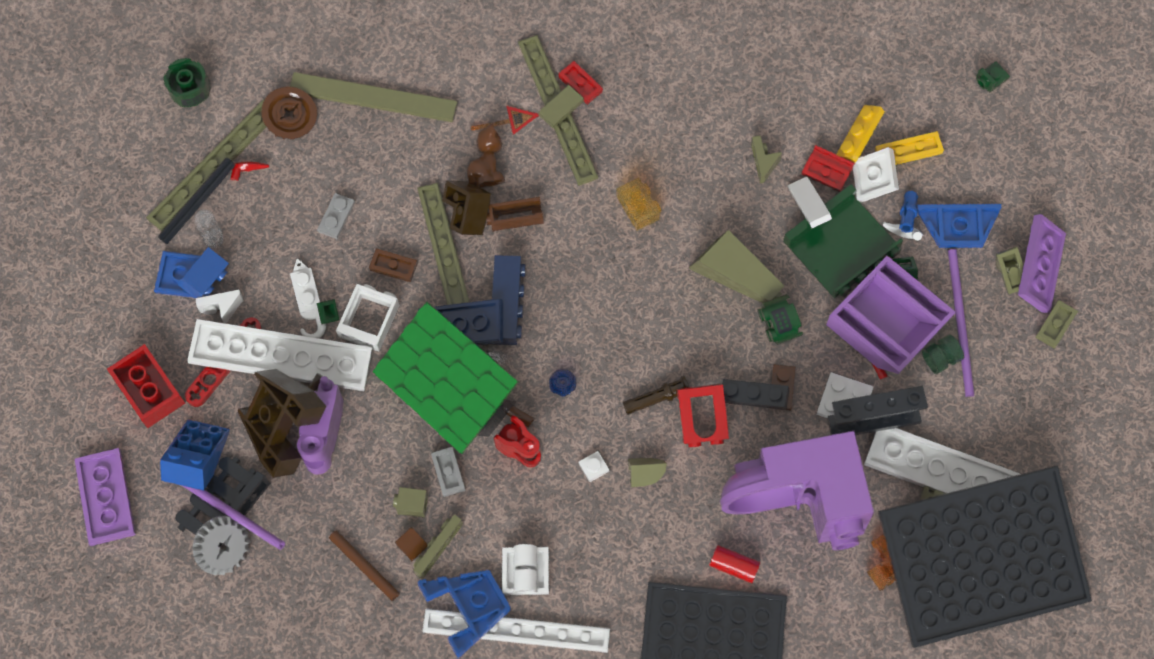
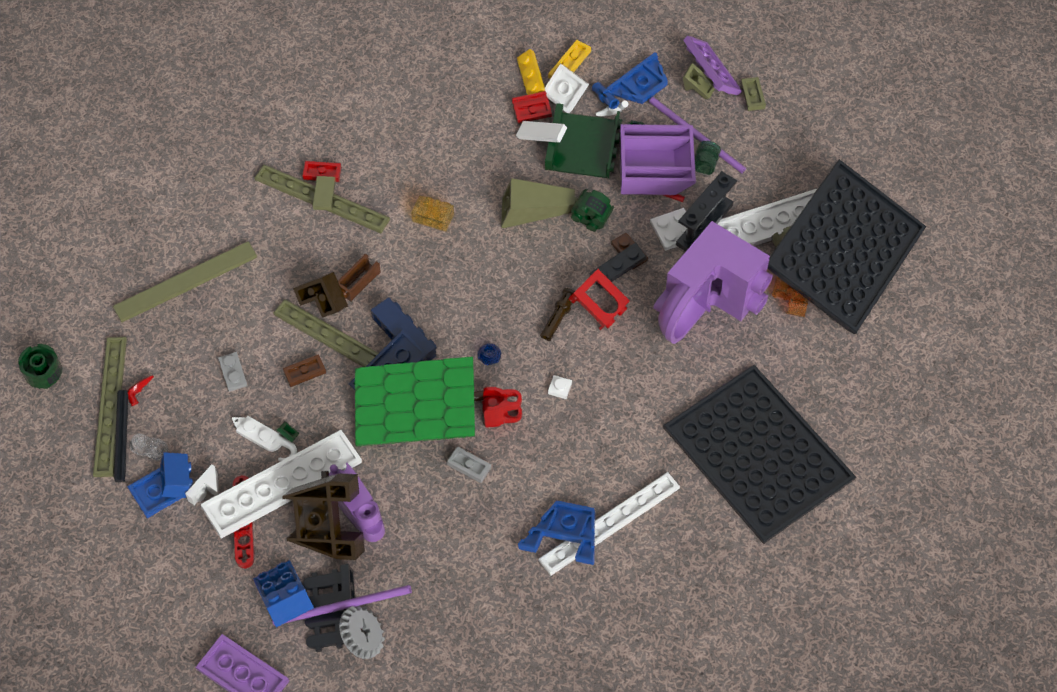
camera: 45 degrees left, 10 degrees down
(145, 386) = (203, 577): red brick -> none
(288, 99) = (124, 327): reddish brown gear -> none
(358, 336) = (326, 429): white window -> none
(364, 565) = (470, 567): reddish brown piece -> none
(411, 502) = (464, 501): olive brick -> none
(411, 544) = (489, 528): reddish brown slope -> none
(437, 546) = (508, 514): olive plate -> none
(483, 170) = (309, 265): reddish brown animal -> none
(517, 118) = (299, 223): piece -> none
(525, 570) = (579, 481): white plate -> none
(646, 471) = (596, 362): olive brick -> none
(734, 564) = (705, 371): red pin -> none
(764, 162) = (486, 132): olive slope -> none

